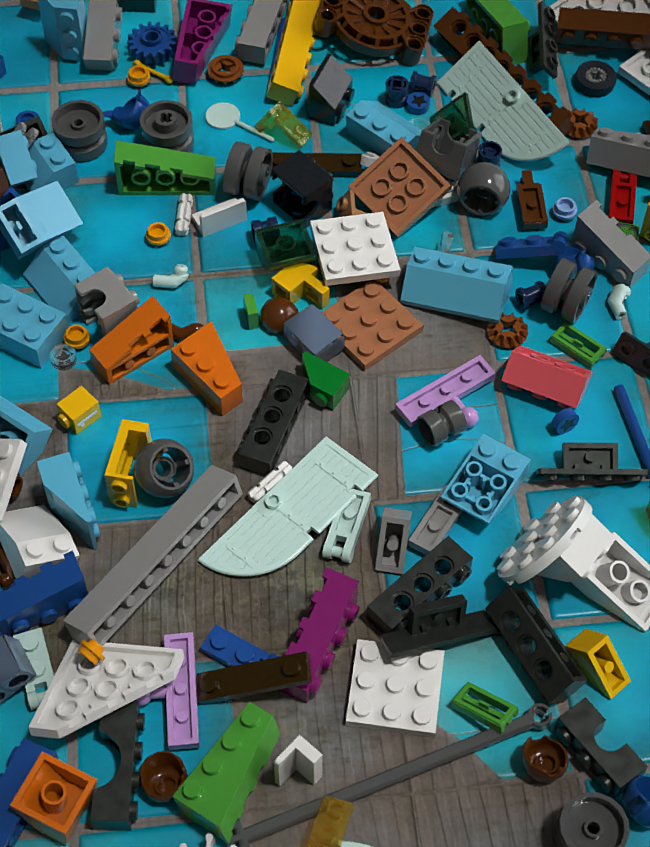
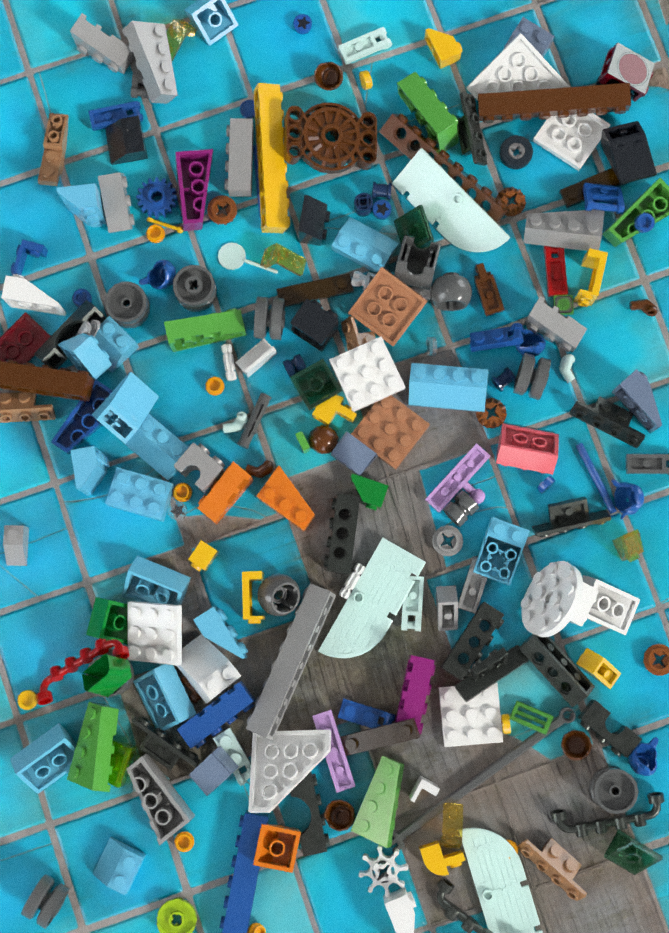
camera: 10 degrees left, 25 degrees up
(92, 651) = (271, 746): light orange plate -> none
(189, 284) = (254, 420): none -> dark grey pin
(419, 452) = (456, 542): none -> light grey gear
(444, 707) = (505, 721): none -> yellow tile
(489, 152) = (448, 252): dark blue wheel -> none
(564, 208) = (514, 291): light blue plate -> none
(575, 346) = (558, 421): bright green tile -> none

